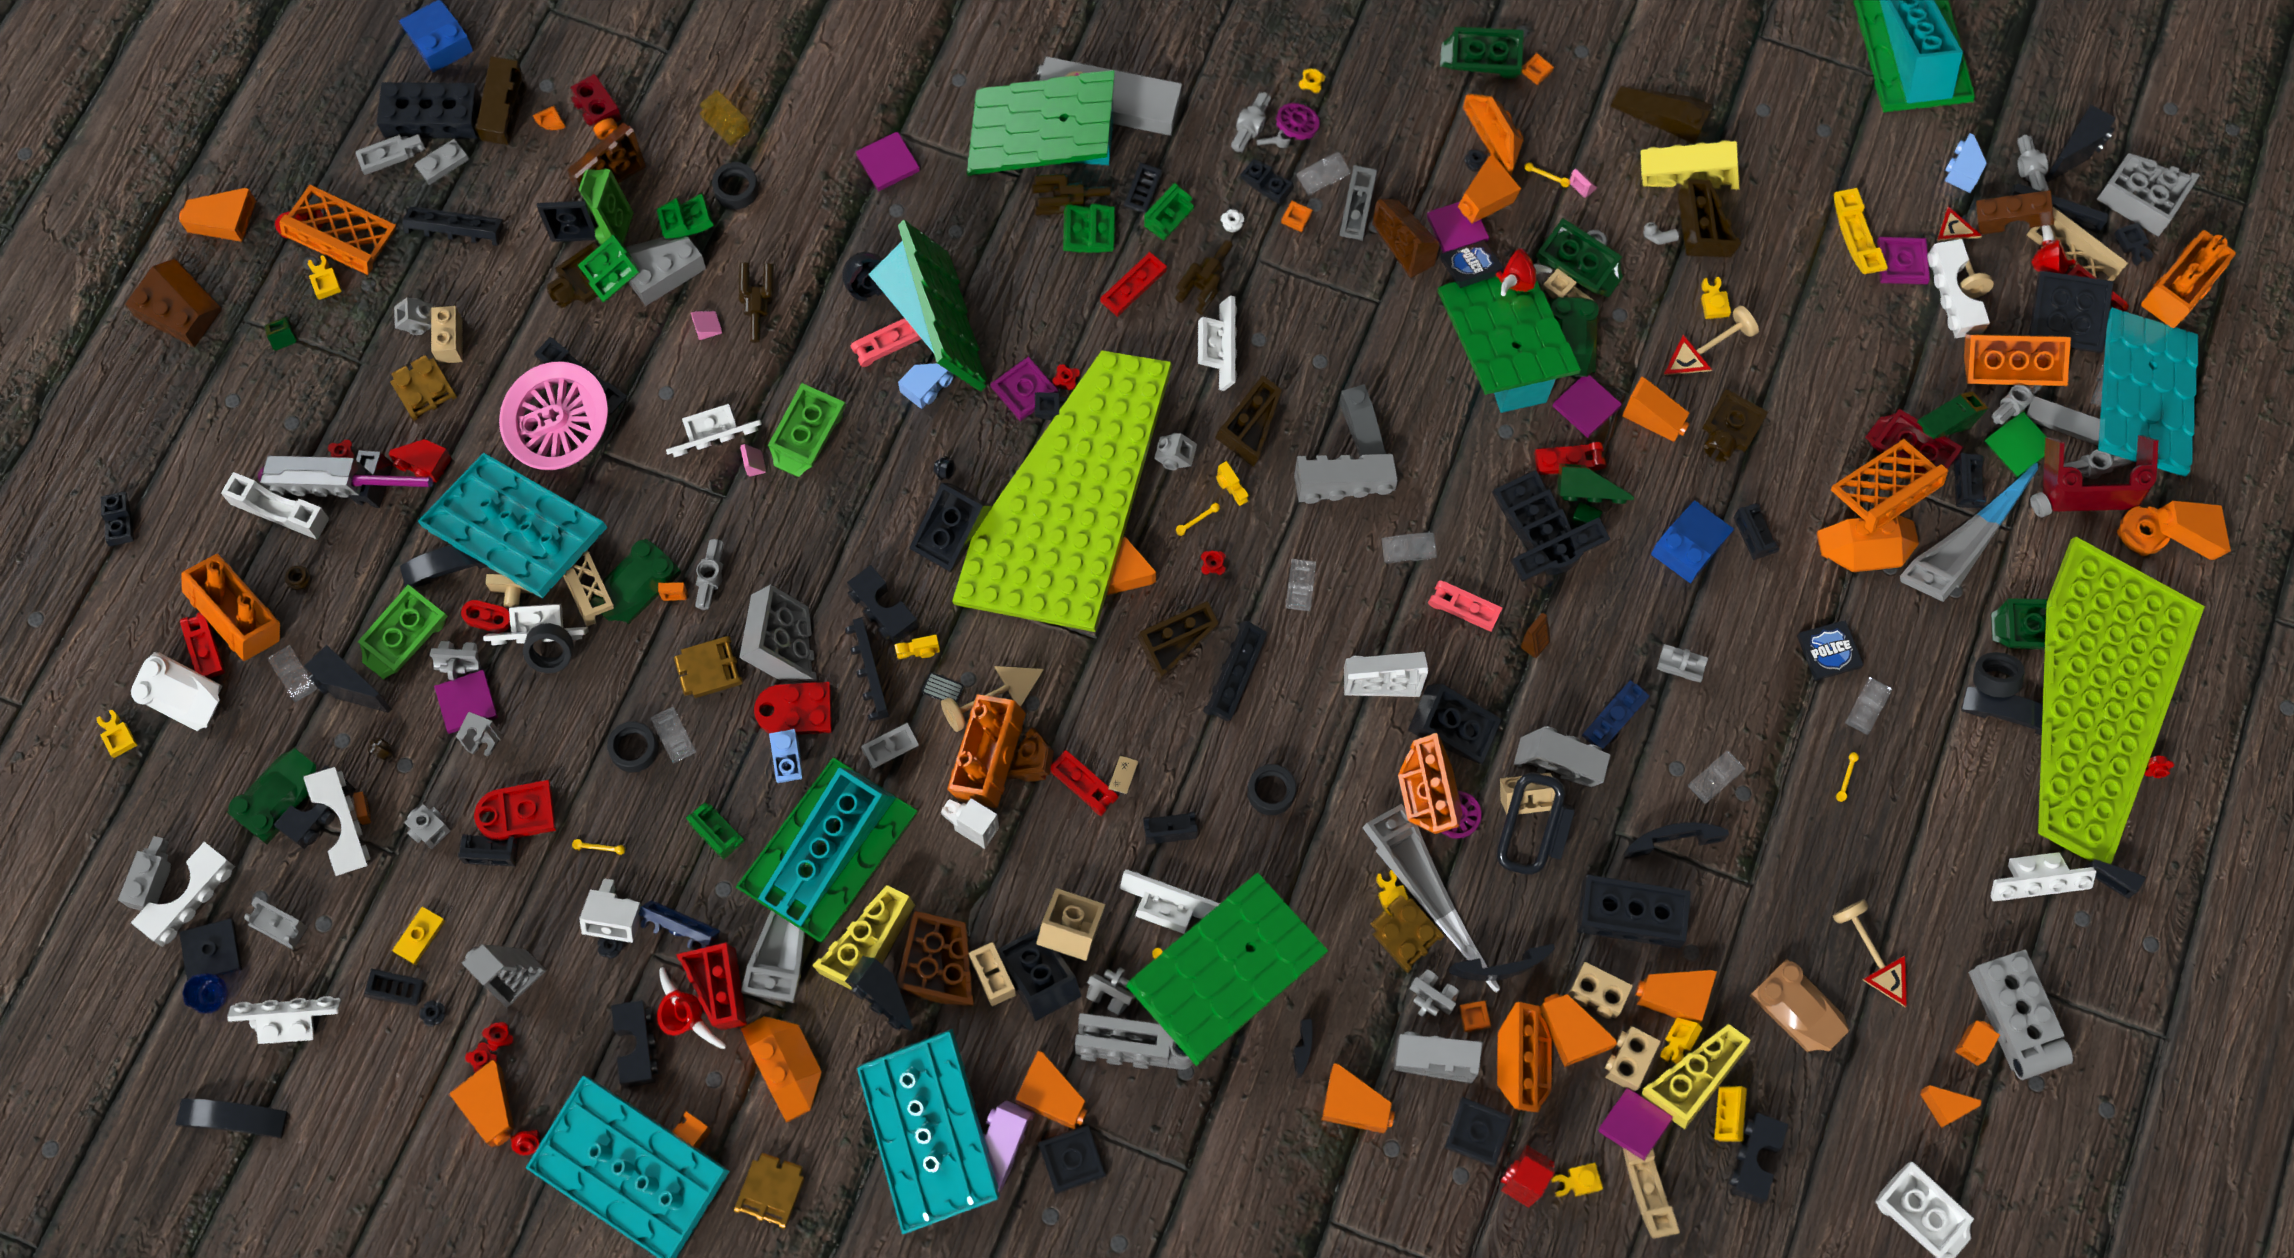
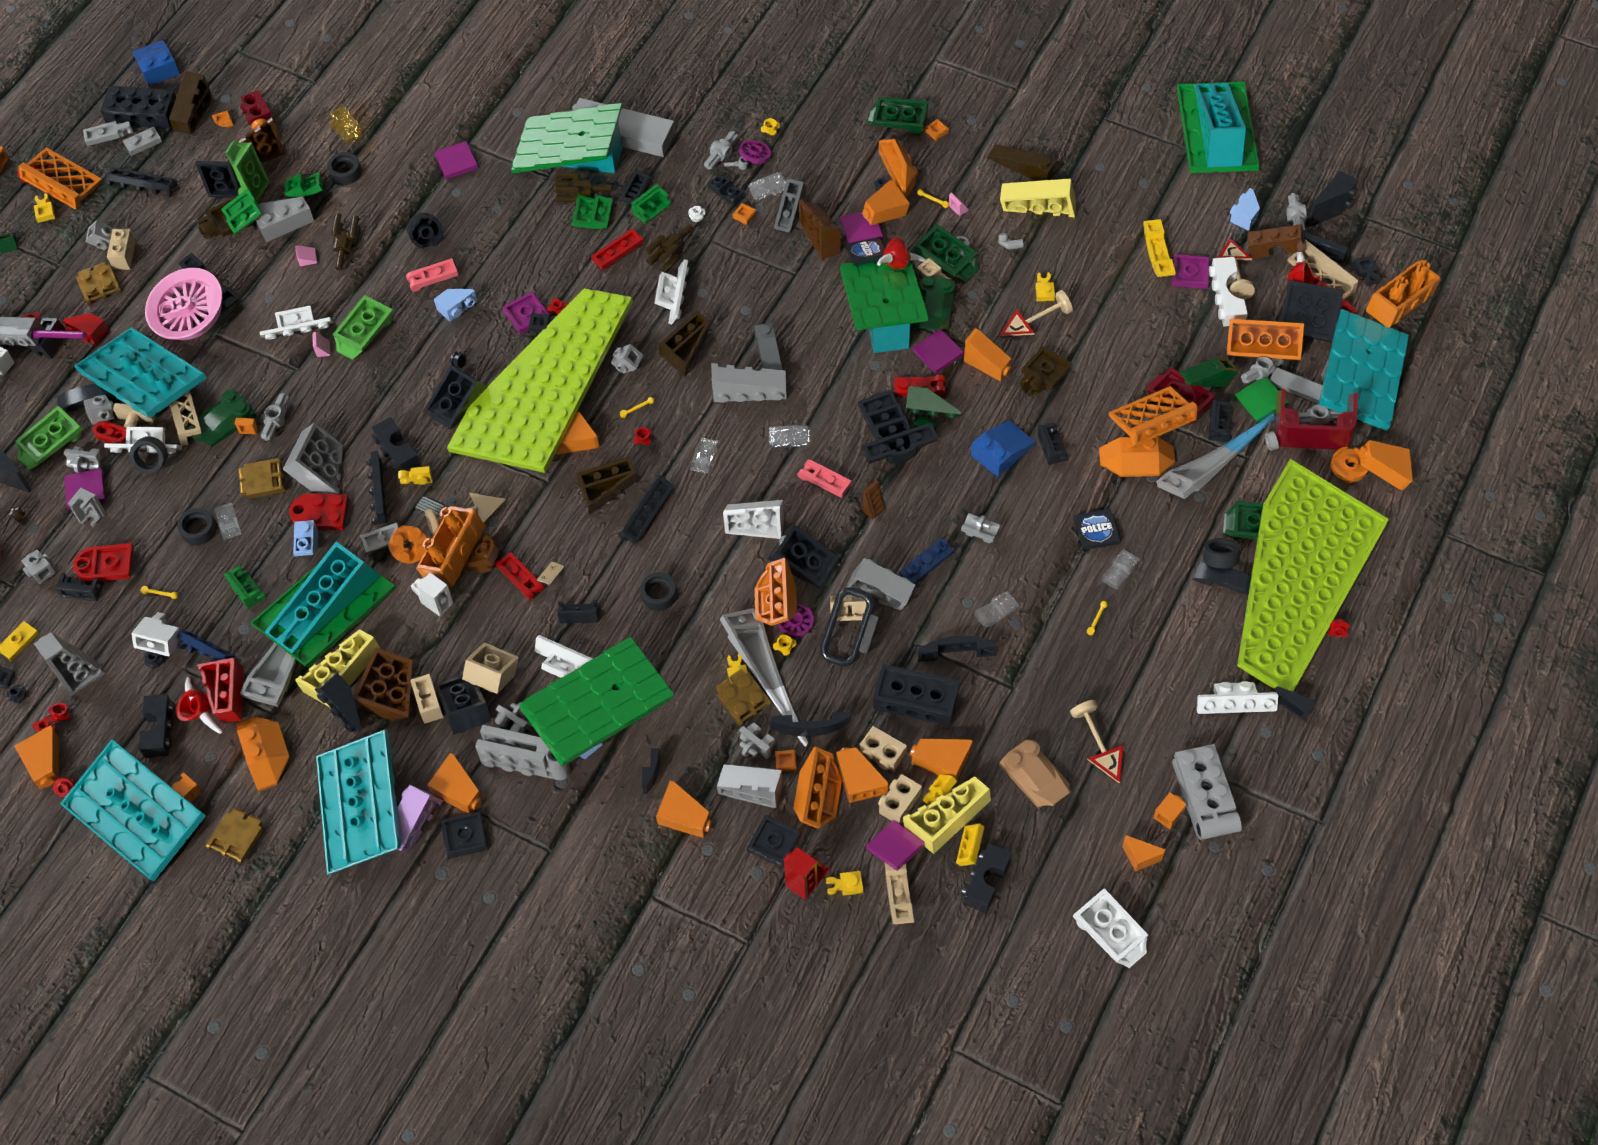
camera: 10 degrees right, 10 degrees down
(465, 583) = (99, 409): none -> light grey brick
(926, 292) = (466, 243): green piece -> none
(936, 761) = (399, 537): none -> orange plate
(1229, 480) = (663, 381): yellow plate -> none
(1445, 844) = (784, 639): none -> yellow plate
(1703, 221) = (1042, 234): dark brown wedge -> none
(2147, 192) = (1380, 235): light grey wedge -> none

